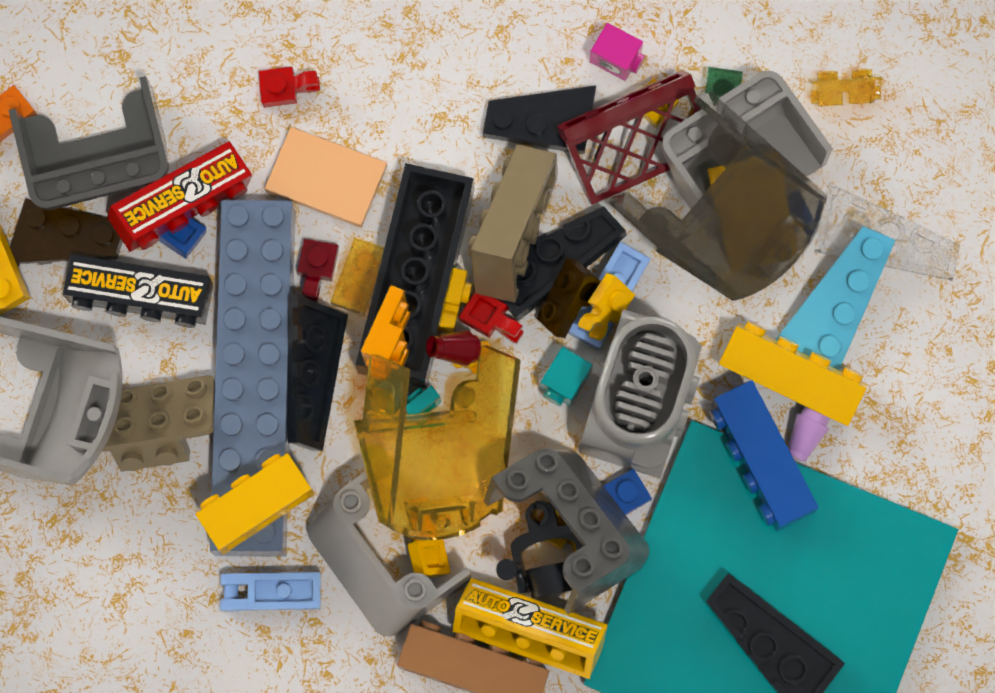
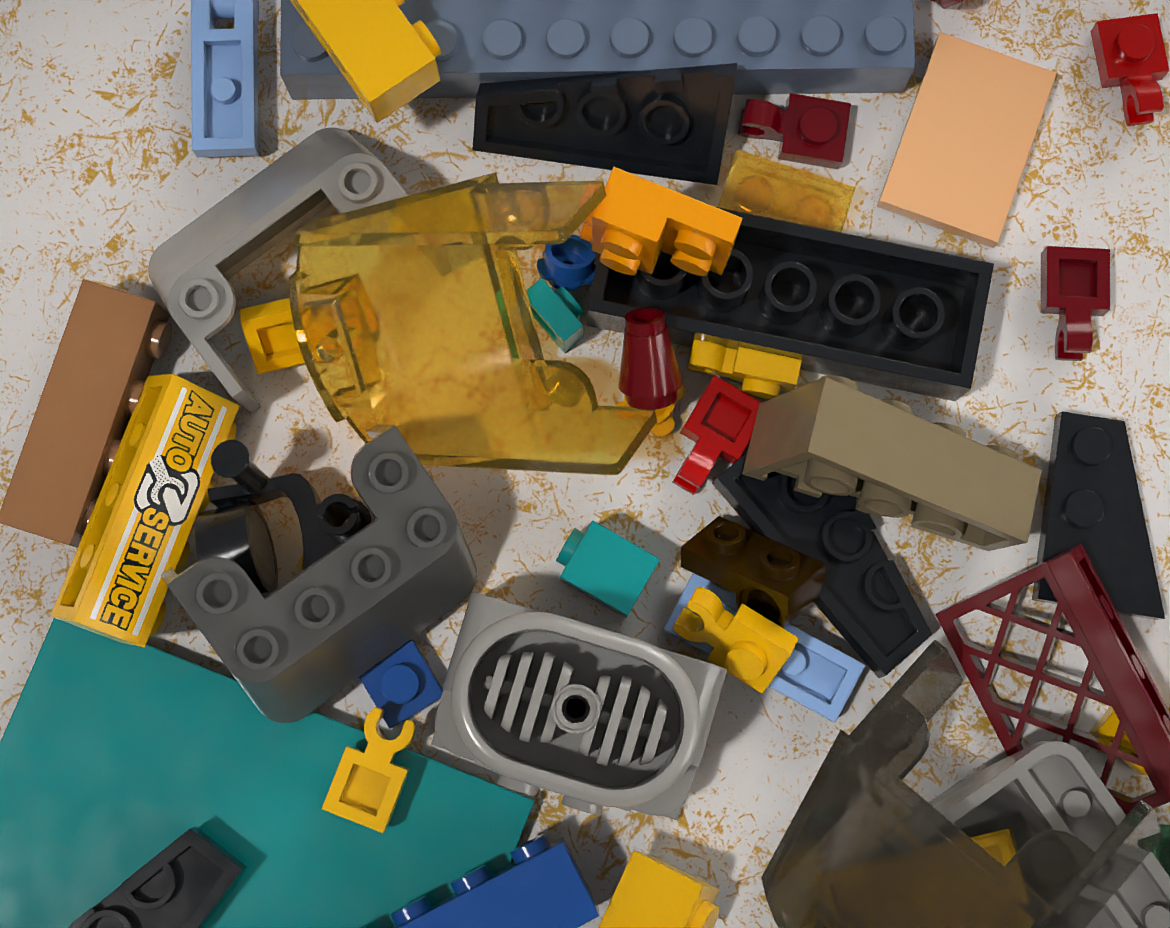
camera: 85 degrees right, 5 degrees up
(413, 122) = (1075, 287): none -> dark red plate
(681, 506) = (369, 781): none -> yellow plate

